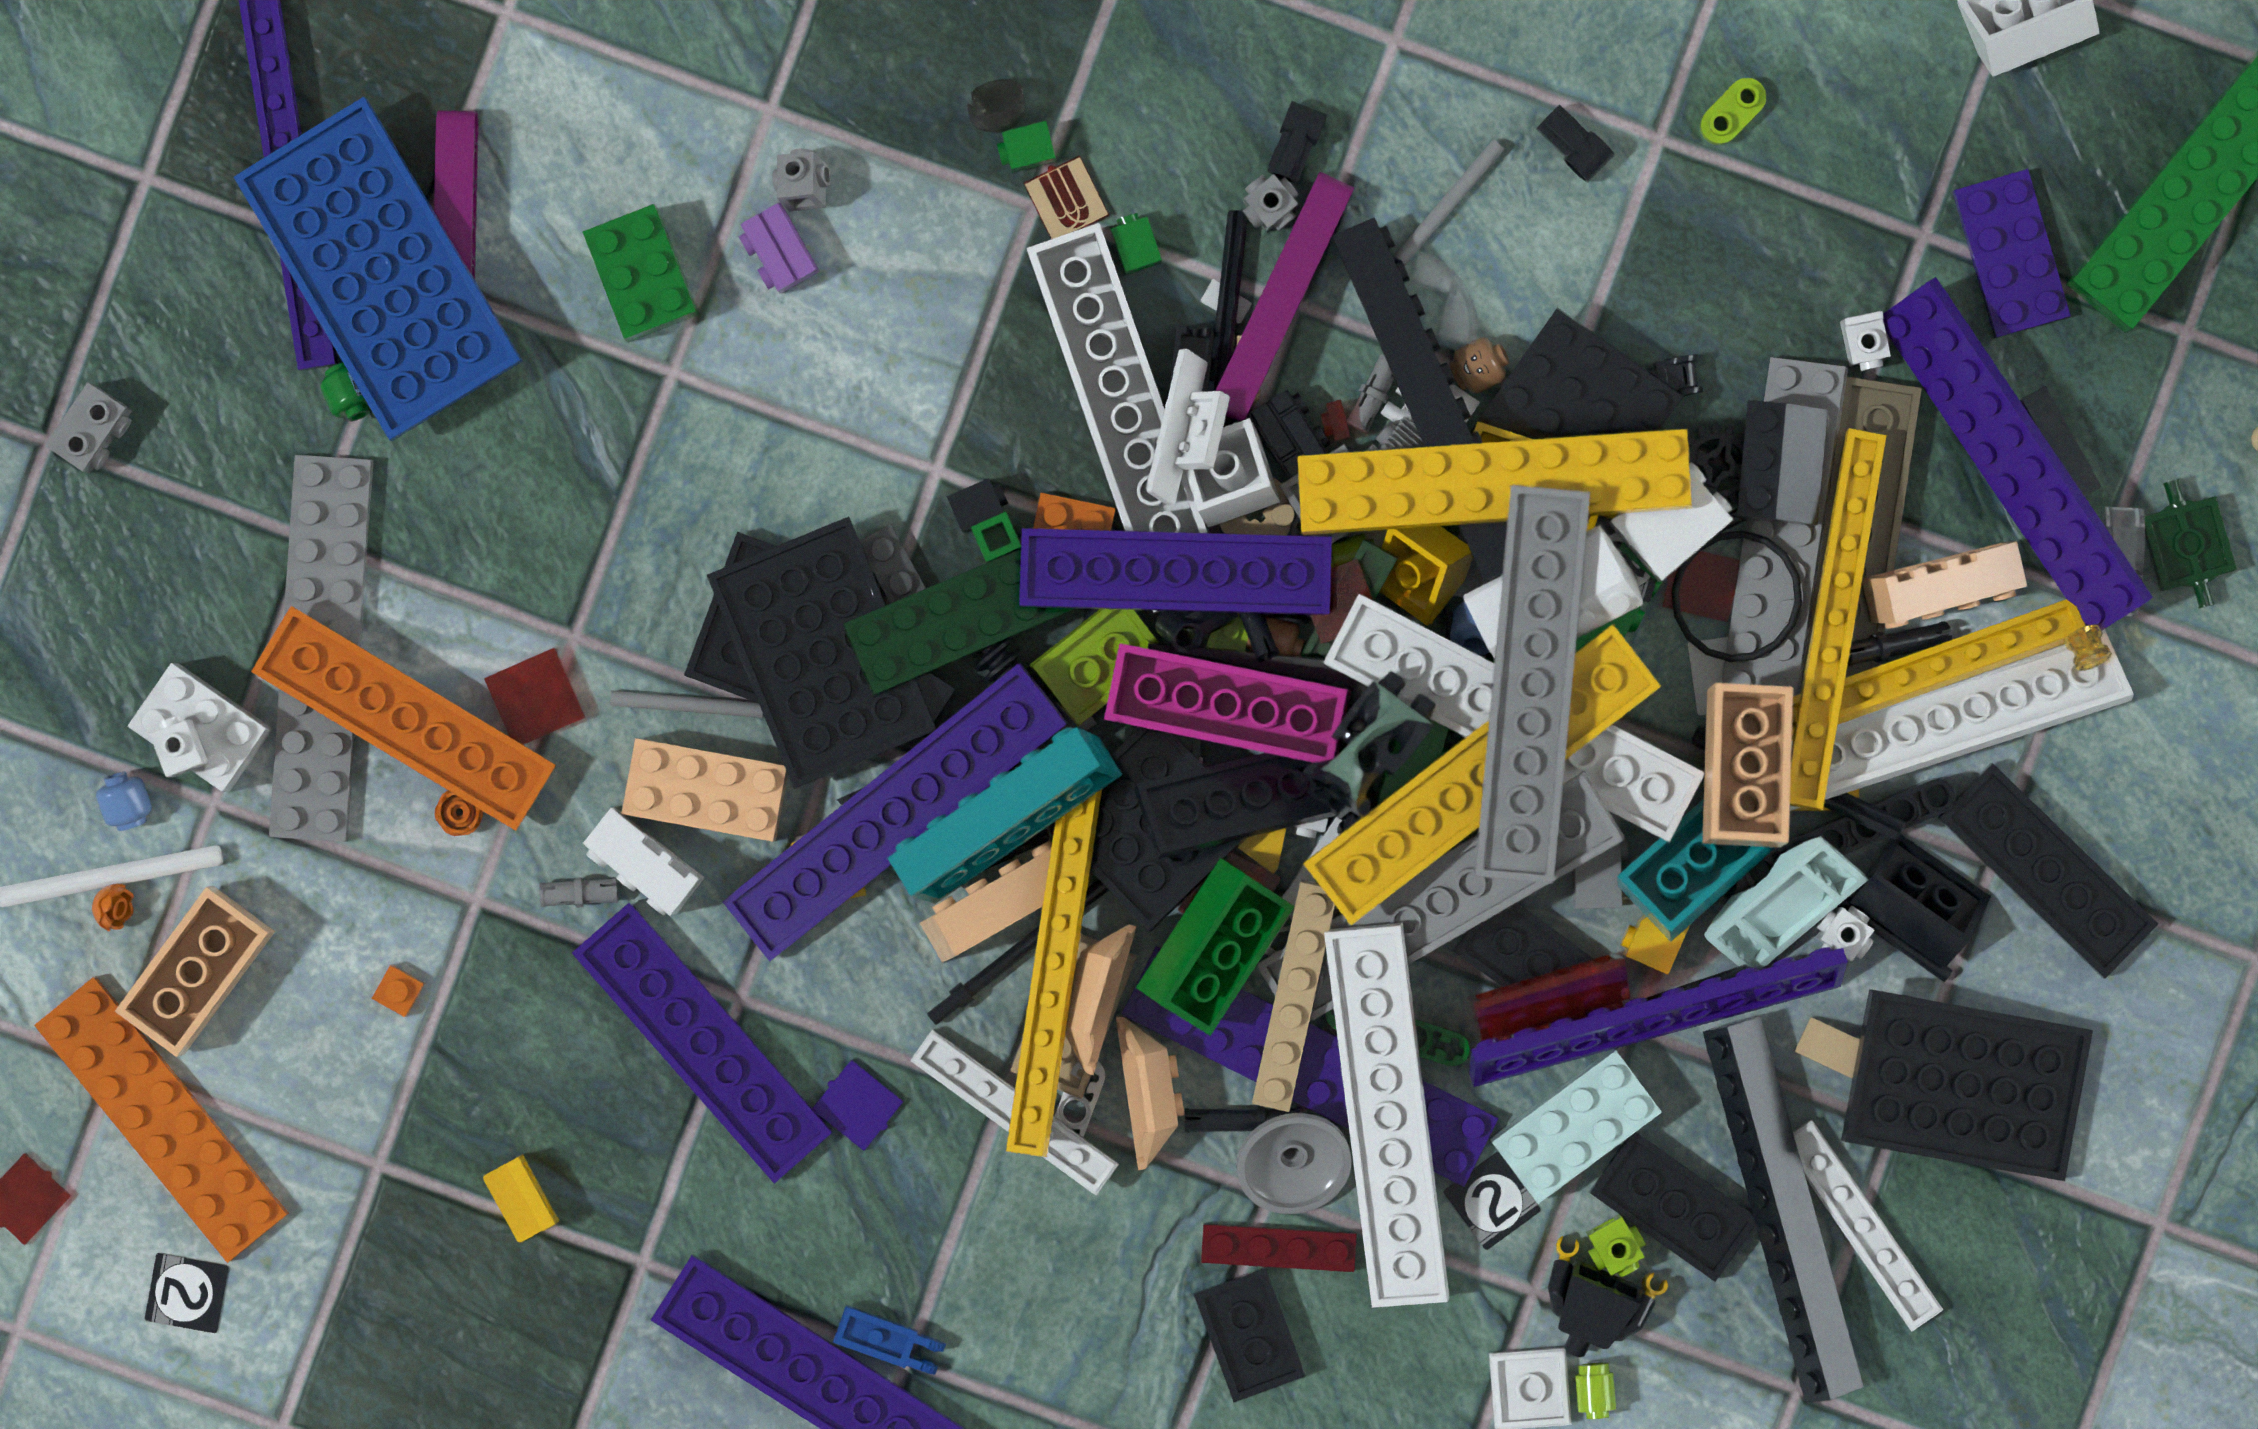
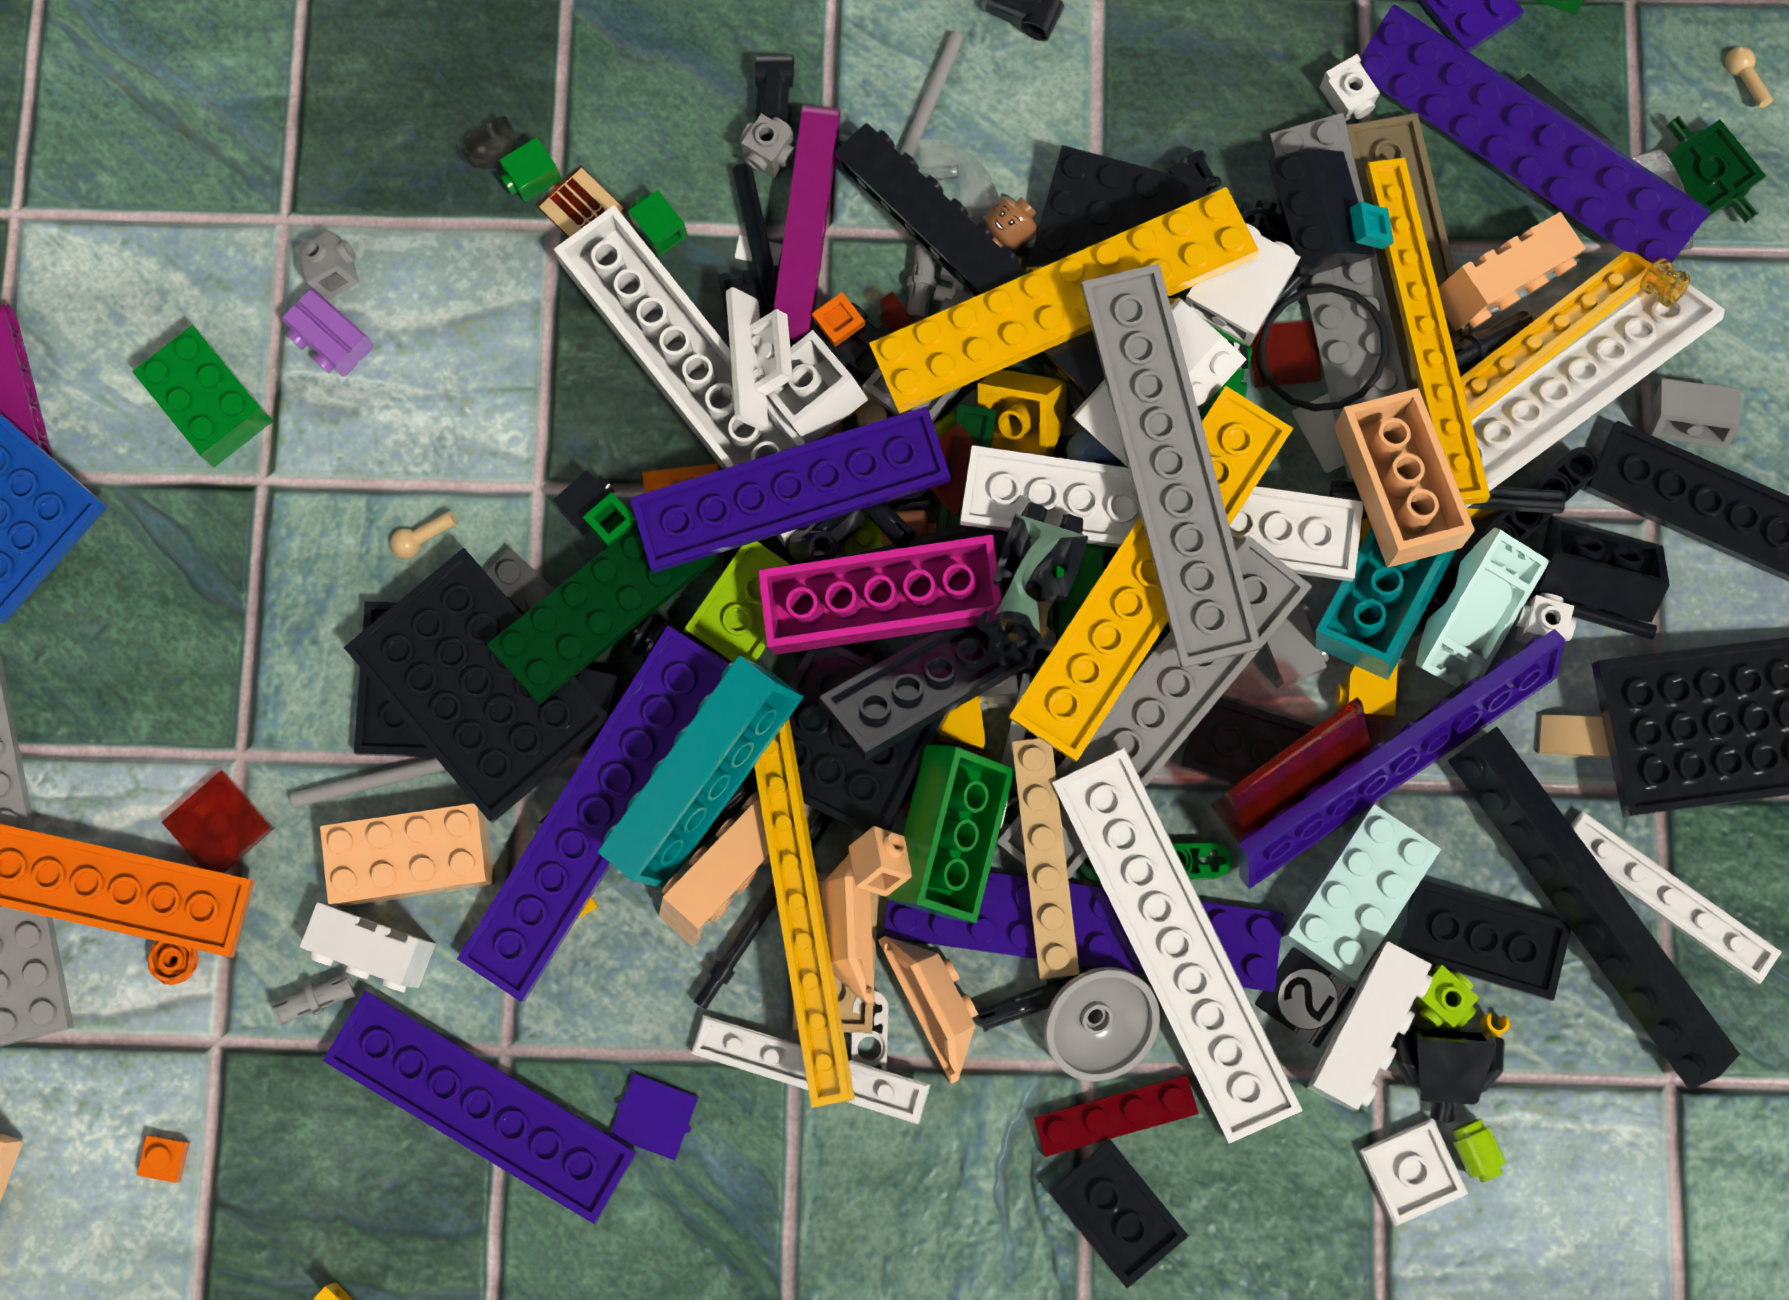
camera: 15 degrees left, 10 degrees down
(793, 482) = (407, 543): none -> tan bar
(1141, 952) = (880, 861): none -> light nougat brick
(1278, 414) = (838, 319): none -> orange plate
(1534, 1249) = (1370, 1026): none -> white slope
(1821, 499) = (1371, 225): none -> teal plate
(2068, 781) = (1695, 413): none -> light grey brick

